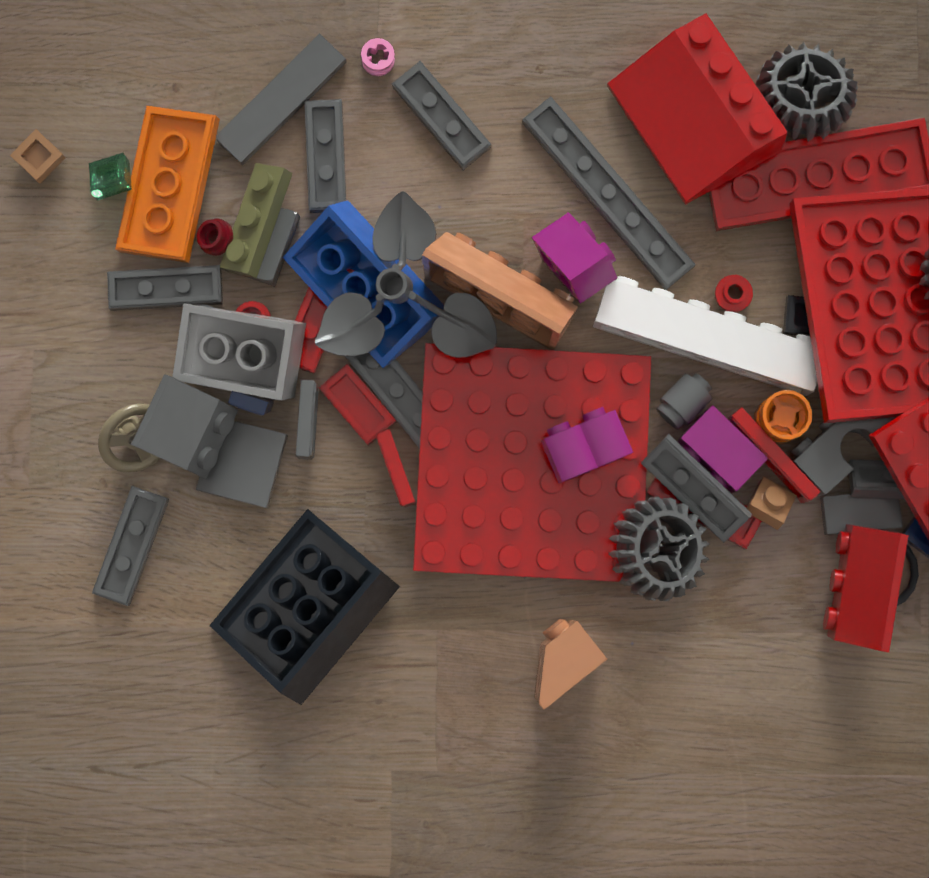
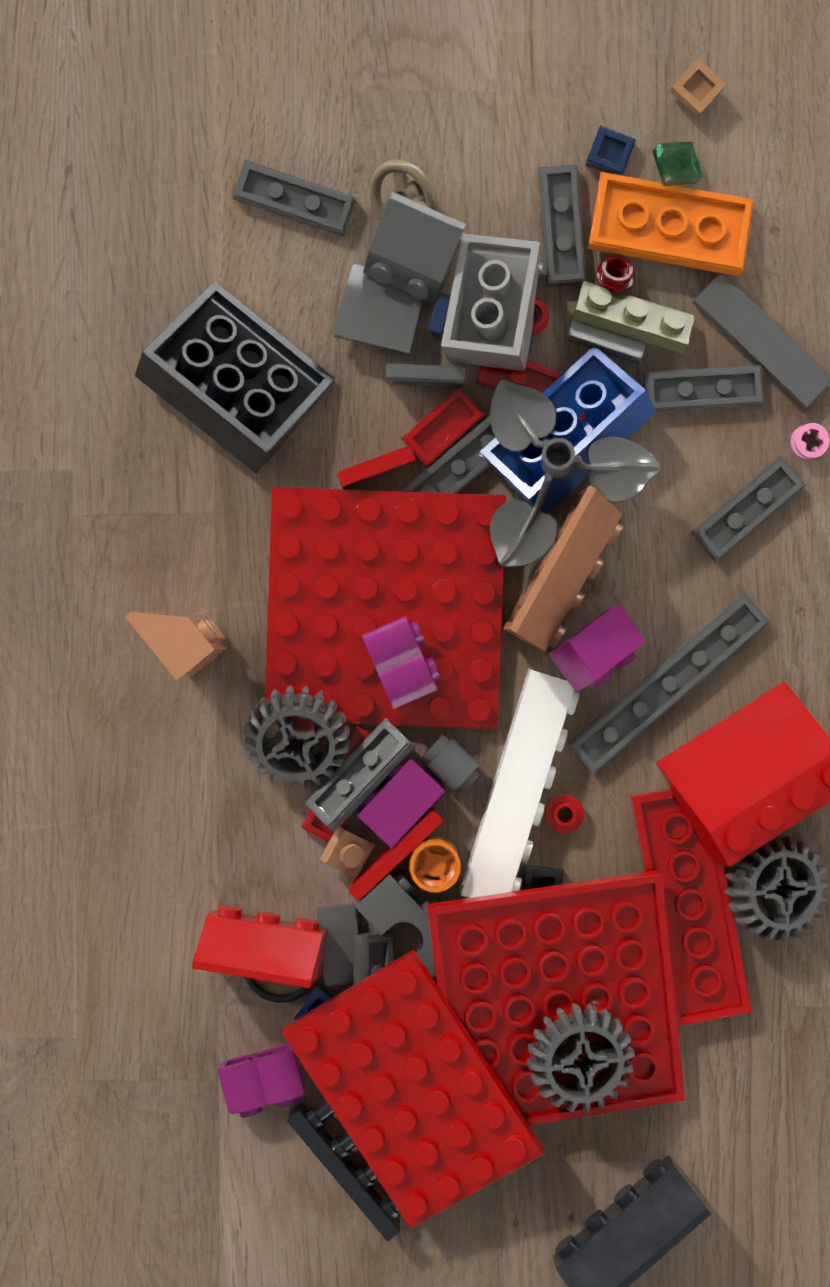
camera: 90 degrees right, 5 degrees up
(95, 240) = (610, 151): none -> dark blue tile

